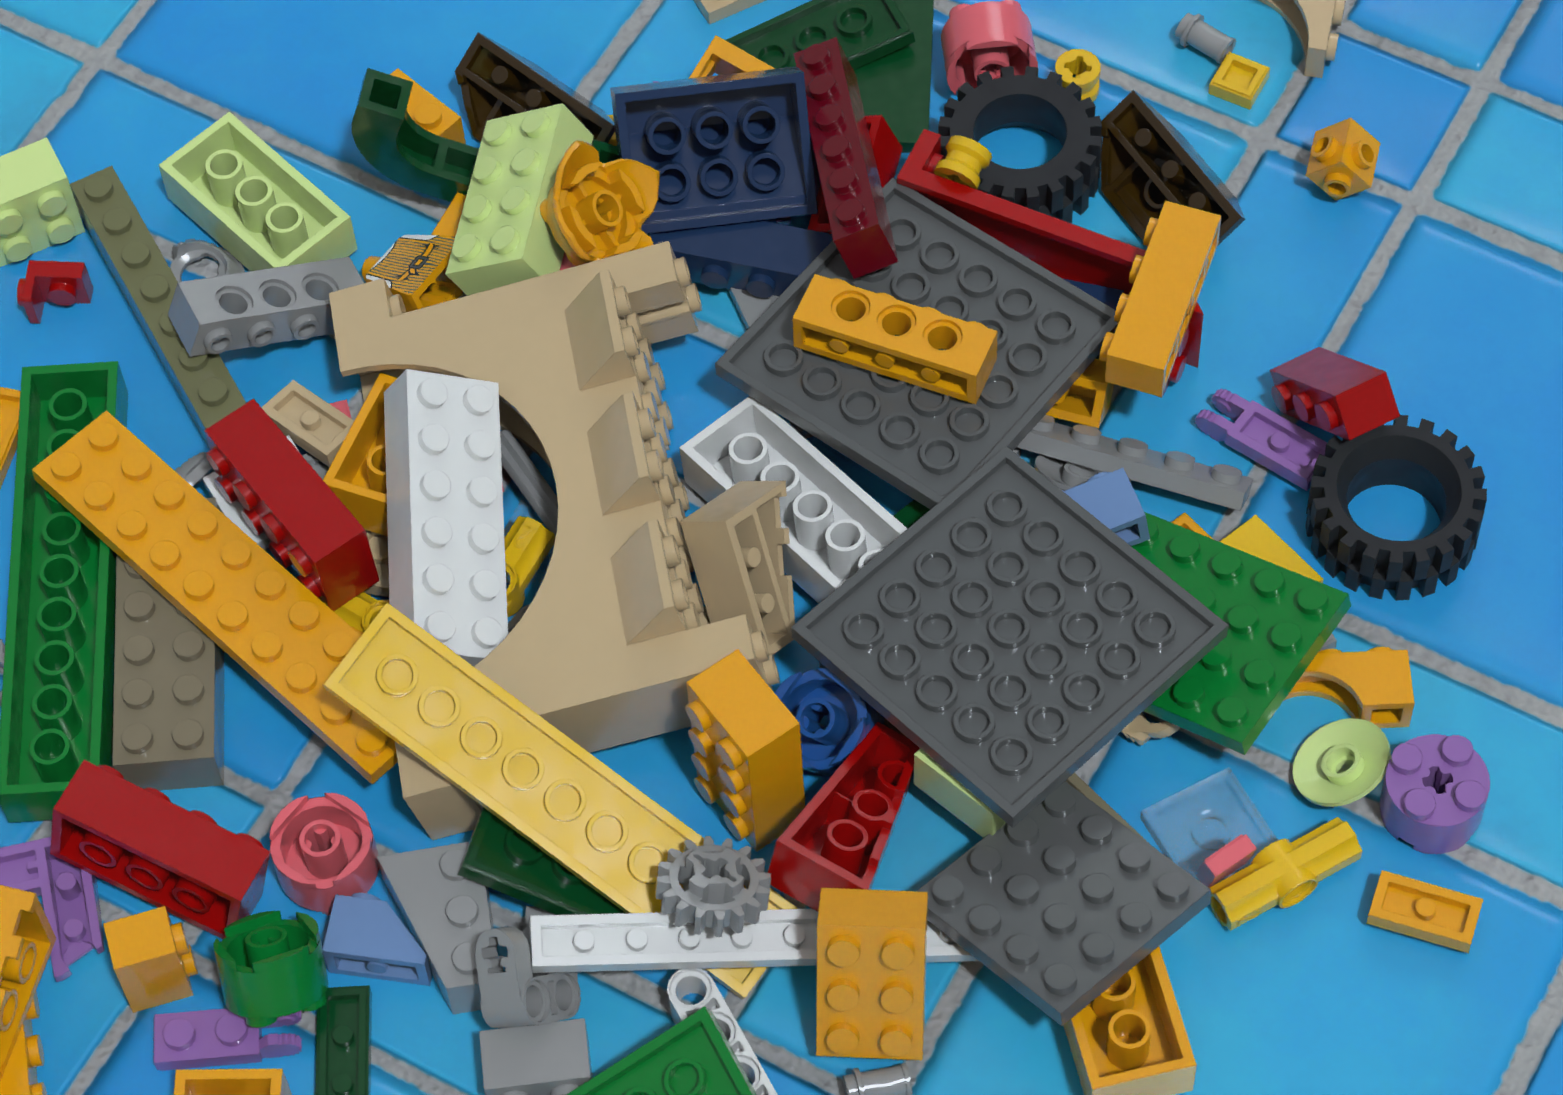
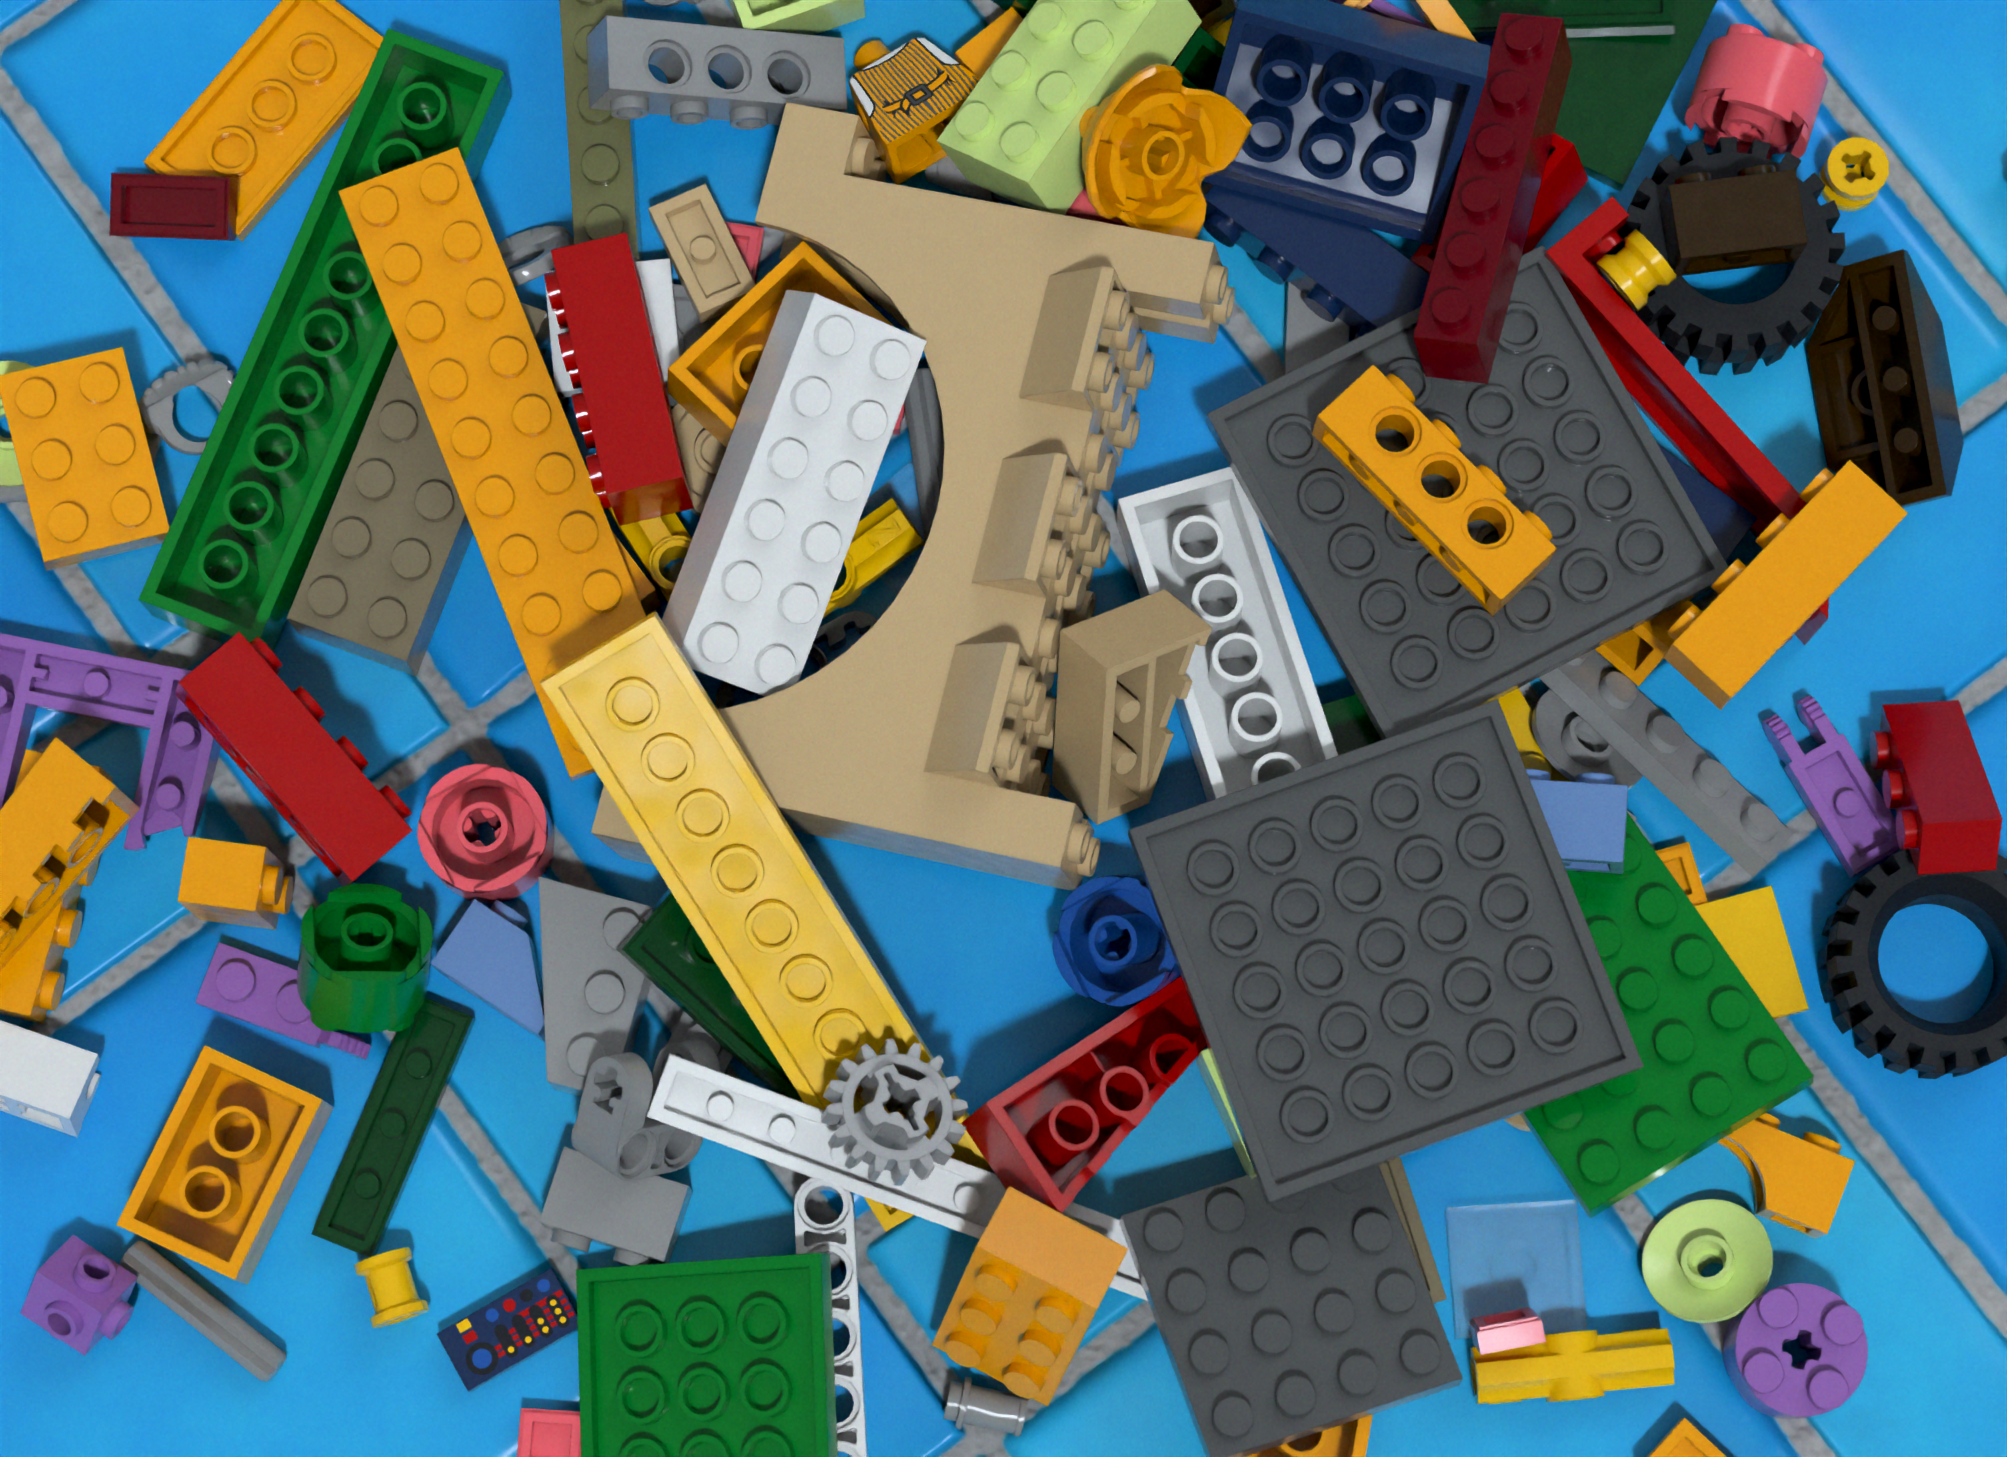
camera: 20 degrees right, 20 degrees up
(745, 750) = (1006, 956): light orange brick -> none
(1013, 110) = (1733, 220): none -> dark brown brick

